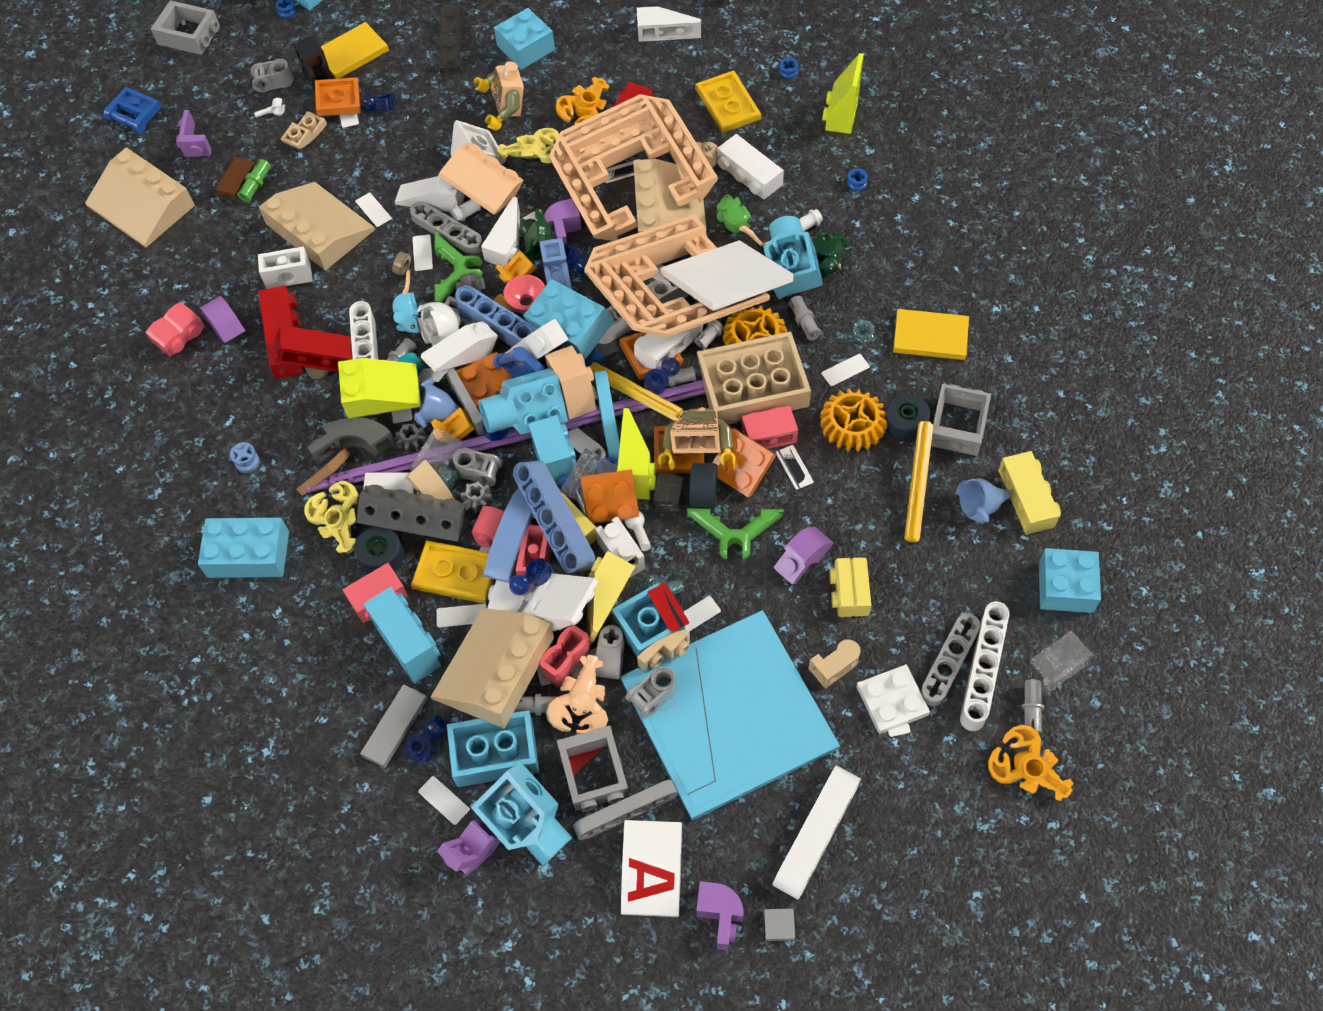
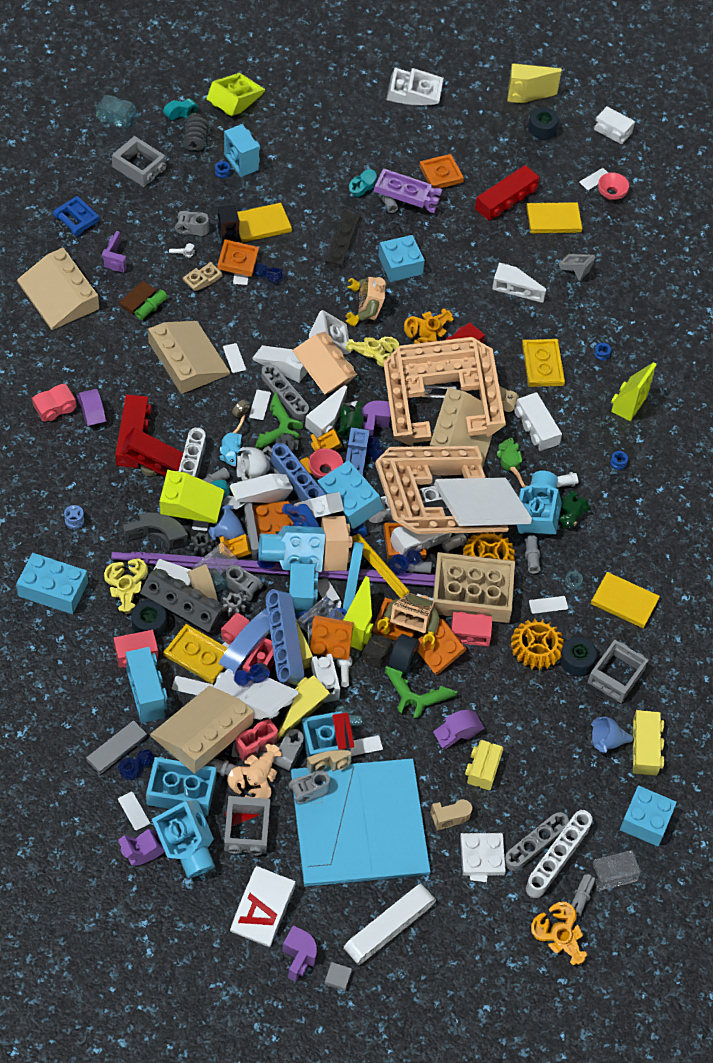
camera: 10 degrees right, 5 degrees down
(285, 267) = (151, 382): white brick -> none
(324, 472) = (128, 548): medium nougat tile -> none
(466, 209) = (304, 382): white pin -> none
(625, 810) = (264, 860): light grey beam -> none
(794, 467) = (479, 664): sticker -> none
(918, 481) = (566, 705): yellow axle -> none

